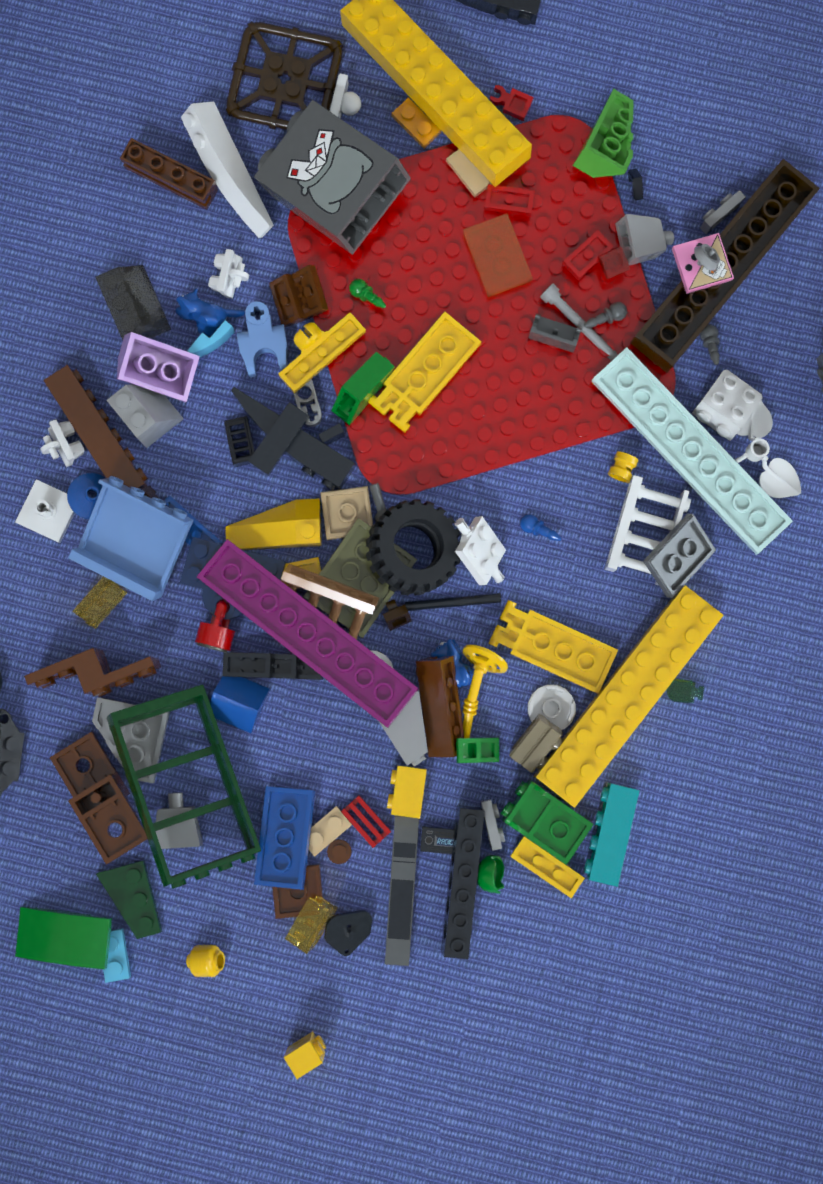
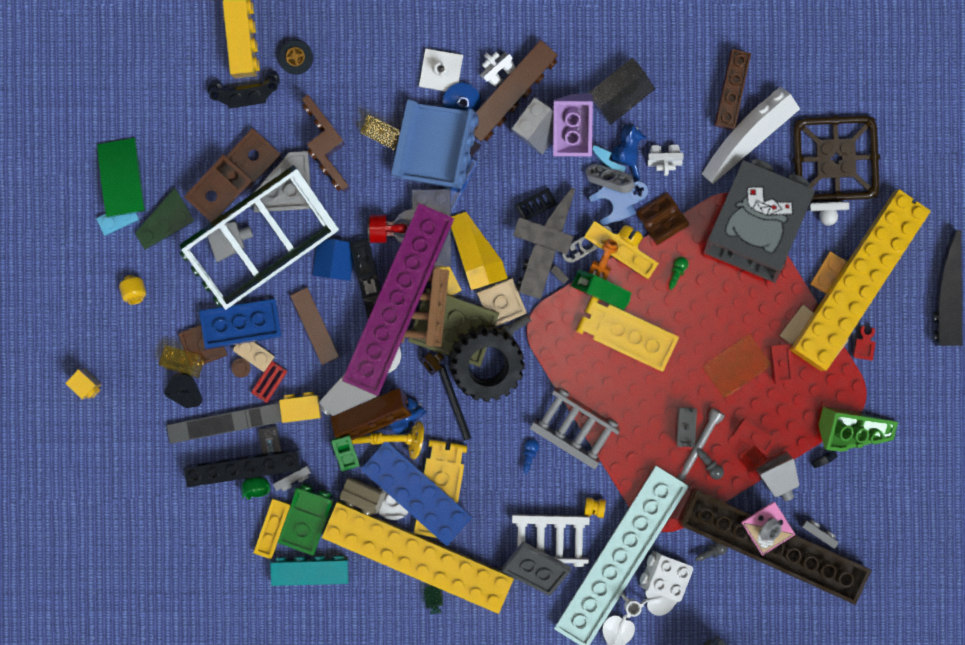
camera: 80 degrees right, 5 degrees up
(238, 329) = (621, 182): none -> light grey beam
(312, 747) = (314, 326): none -> reddish brown tile
(314, 362) = (610, 247): none -> orange hinge
(480, 550) = (498, 414): white plate -> none
(542, 470) = (558, 436): none -> light grey fence
(550, 676) = (416, 493): none -> blue plate

